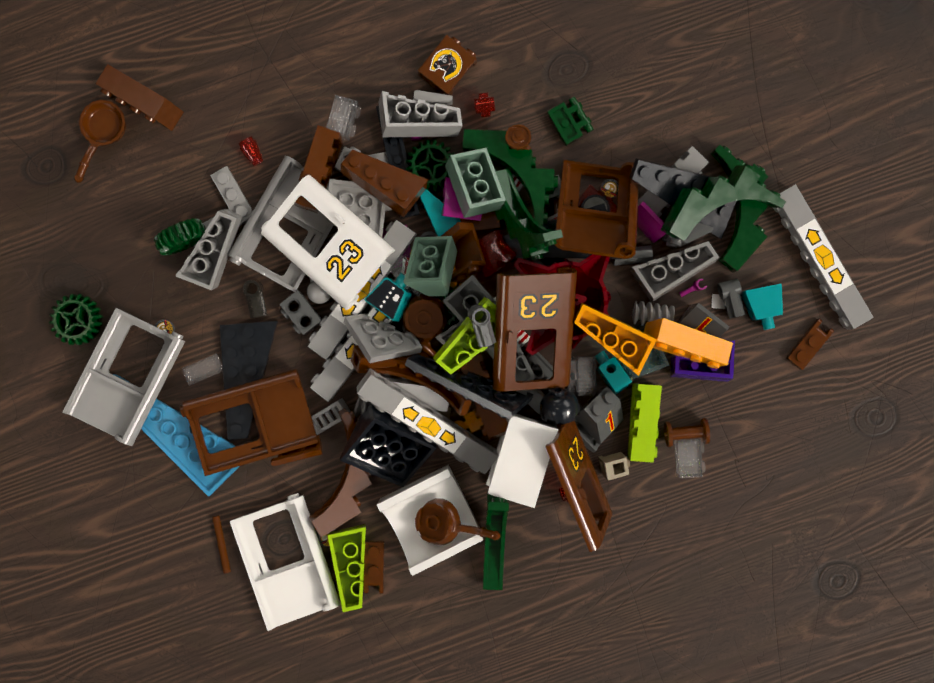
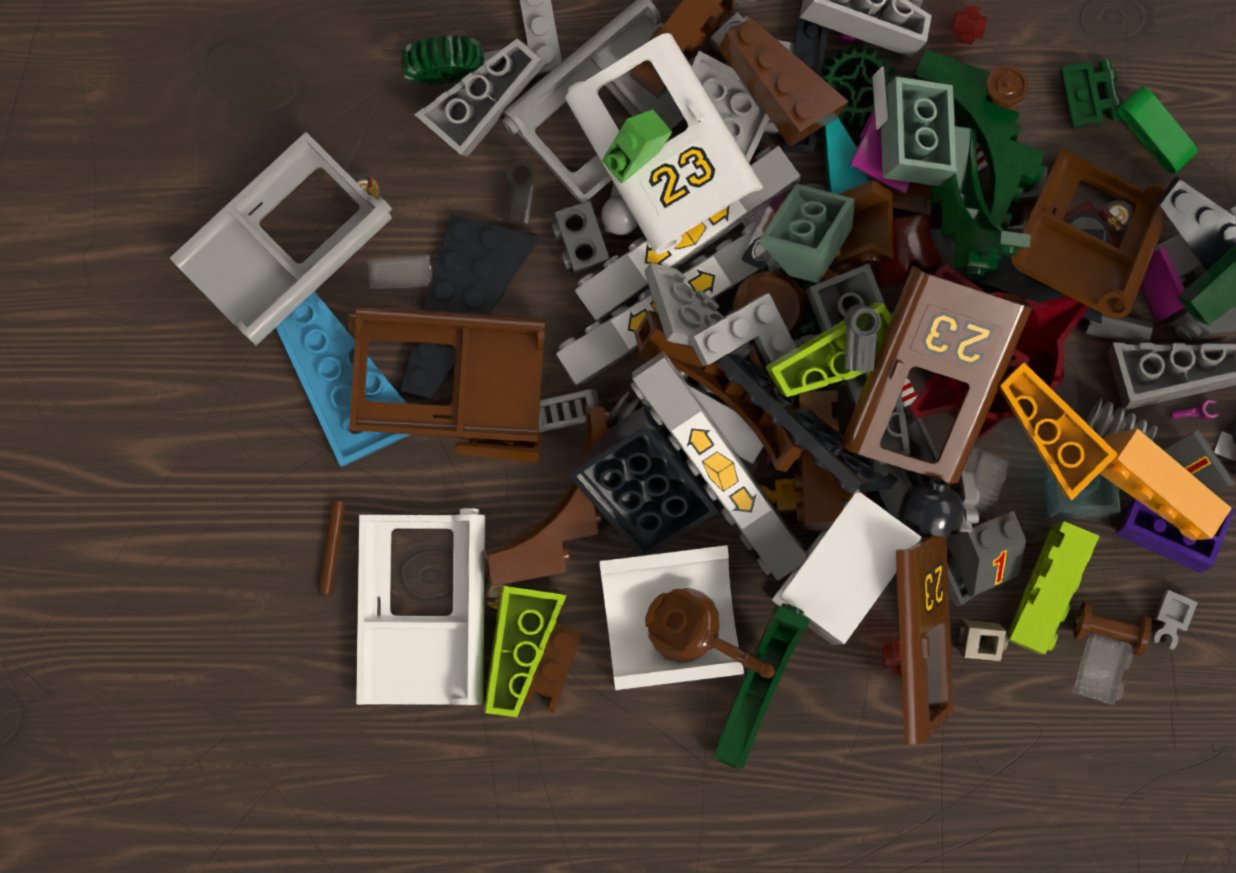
camera: 25 degrees right, 5 degrees down
(71, 325) = (228, 136): dark green gear -> none
(311, 250) = (636, 144): none -> bright green slope
(390, 297) = (729, 257): torso -> none
(417, 331) = (754, 321): none -> light grey plate
(445, 167) = (880, 97): none -> white sticker
(578, 389) = (970, 495): none -> light grey plate
(615, 381) = (1032, 508): teal torso -> none
(616, 129) = (1157, 130): none -> green beam
(720, 410) = (1174, 613): none -> light grey plate

